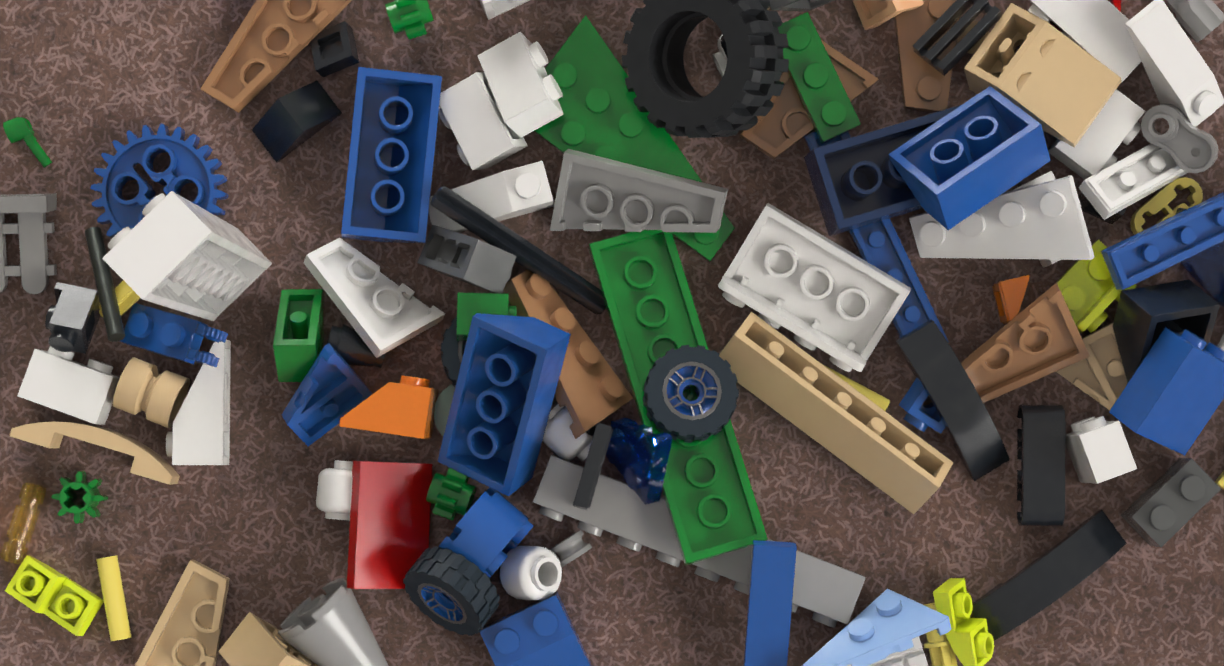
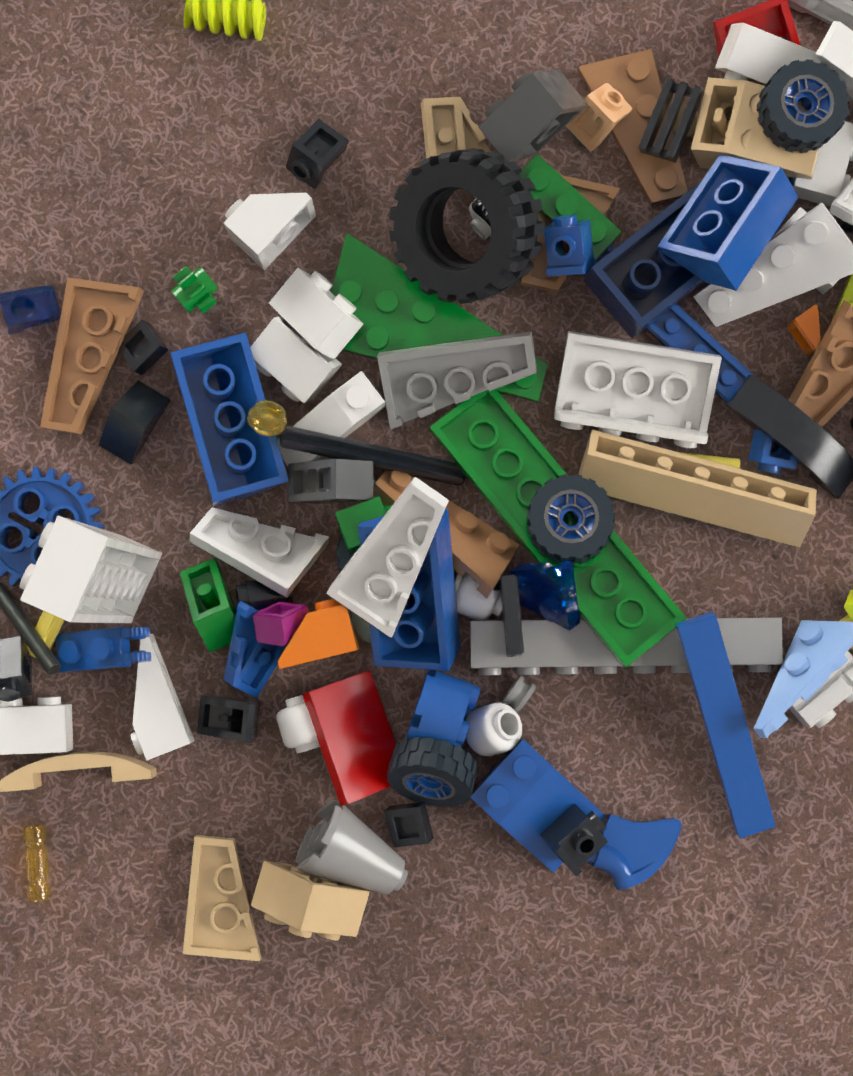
camera: 30 degrees left, 0 degrees up
(54, 595) = (88, 914): neon yellow slope -> none
(68, 495) = (87, 817): green gear -> none
(113, 598) = (141, 896): light yellow piece -> none
(147, 391) = (102, 705): tan wheel -> none
(272, 456) = (228, 718): none -> black slope
(357, 379) = (278, 622): none -> magenta slope
(408, 634) = (409, 824): none -> black plate
(428, 171) = (267, 418): none -> clear yellow plate
(450, 494) = (397, 689): green gear -> none
(489, 363) = (388, 562): none -> white wing
(813, 117) = (578, 236): none -> blue brick
(1115, 63) = (819, 93): none -> black wheel

